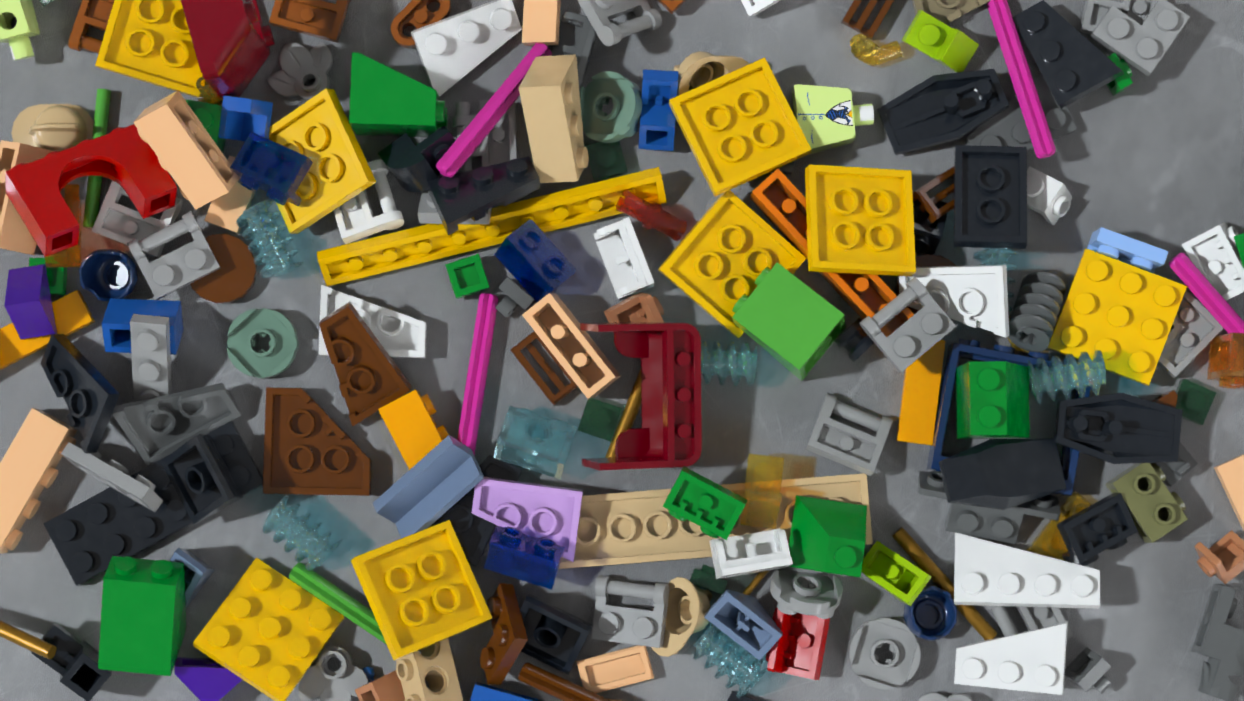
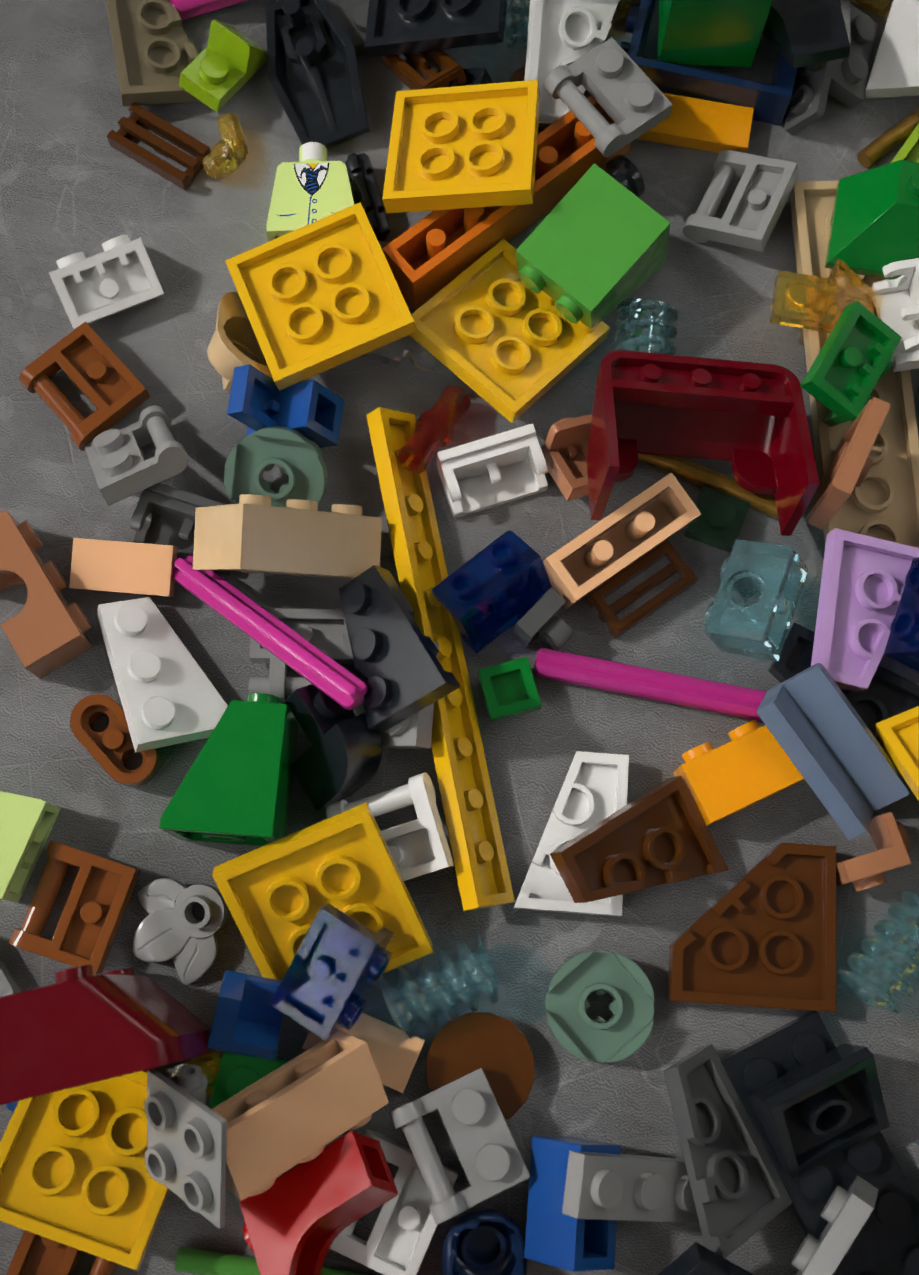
camera: 90 degrees left, 10 degrees down
(165, 87) = (186, 1141): none -> light grey hinge
(355, 517) = (892, 852): none -> nougat bracket
(606, 160) = (351, 487): clear green plate -> none
(624, 499) = (848, 464): none -> nougat plate
(843, 154) = (367, 192): none -> black axle

